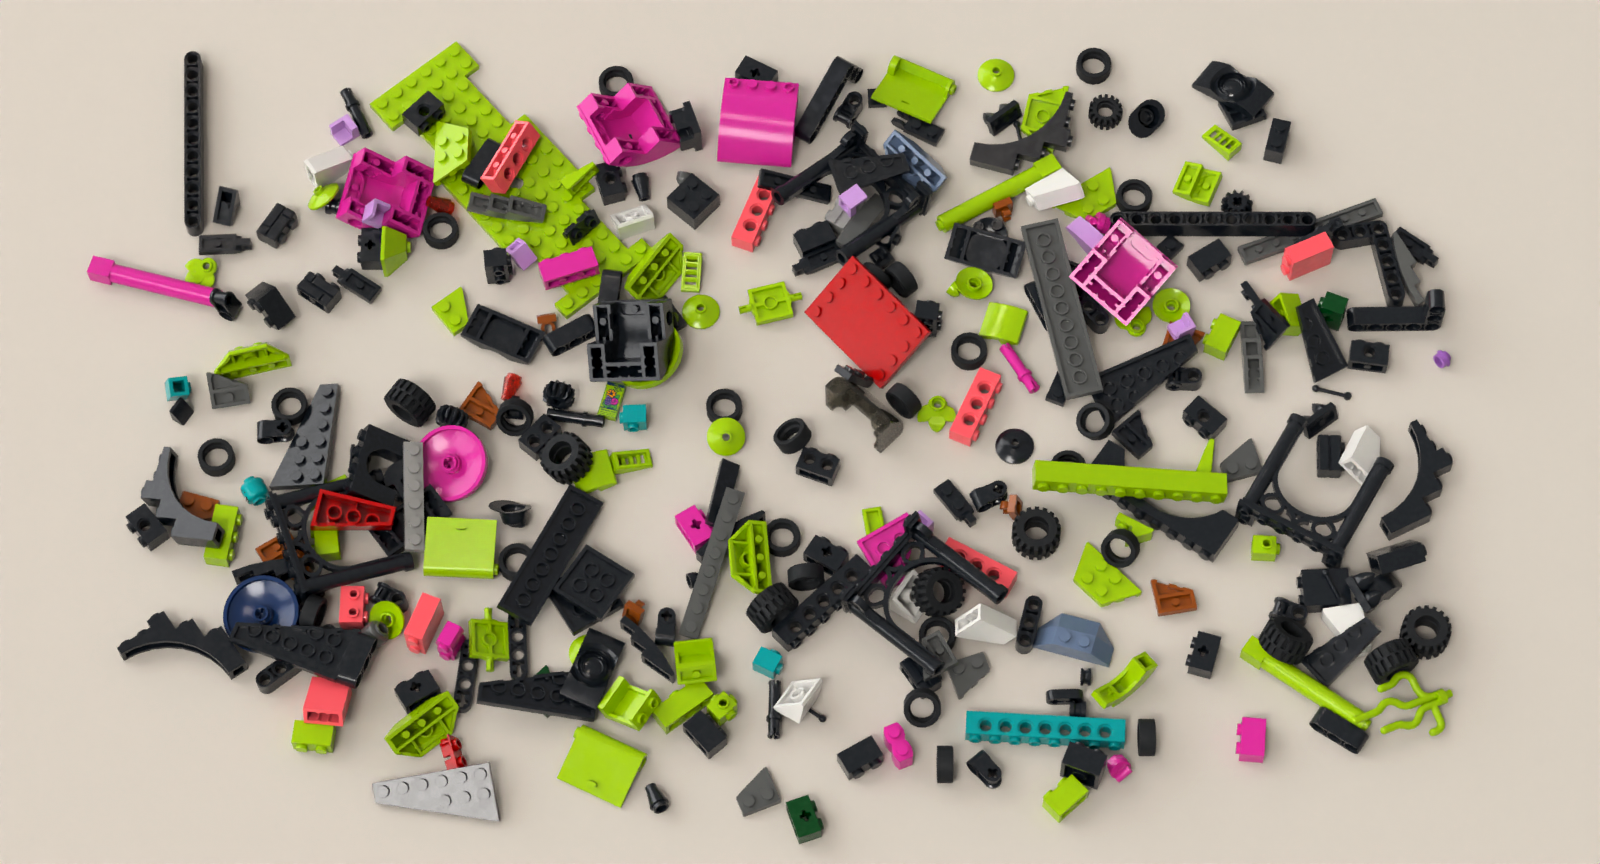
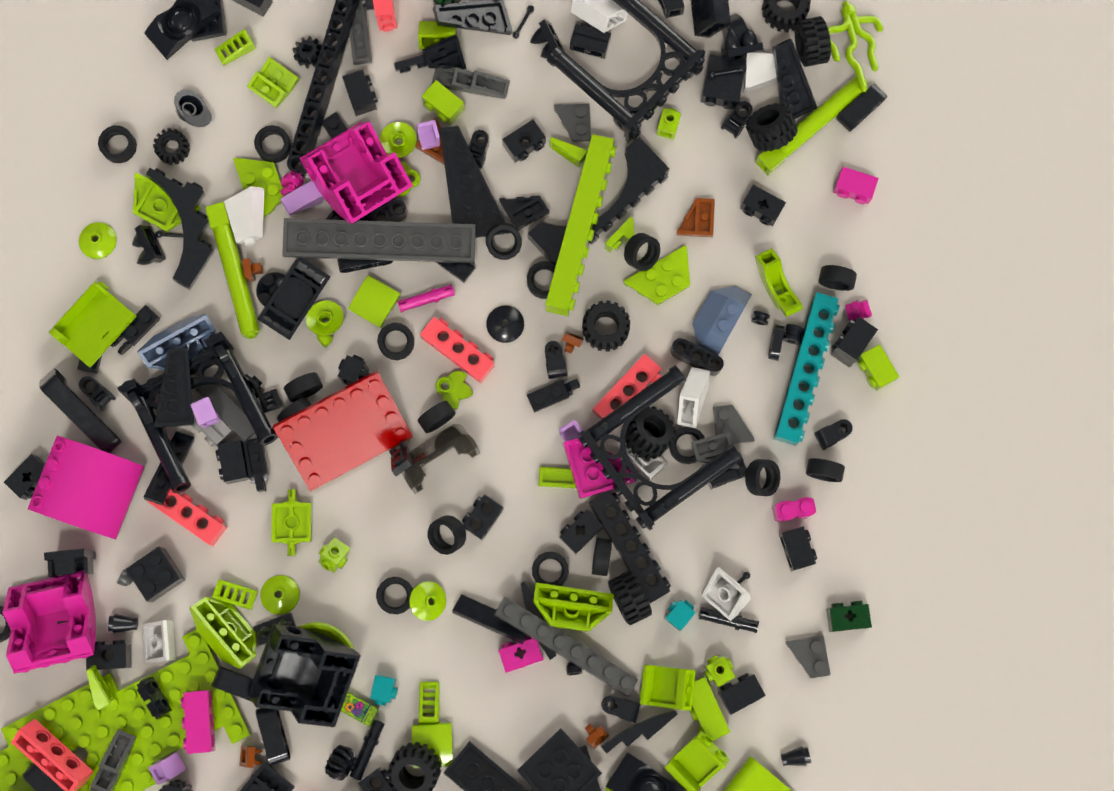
camera: 80 degrees left, 15 degrees up
(748, 344) = (334, 555): none -> lime brick

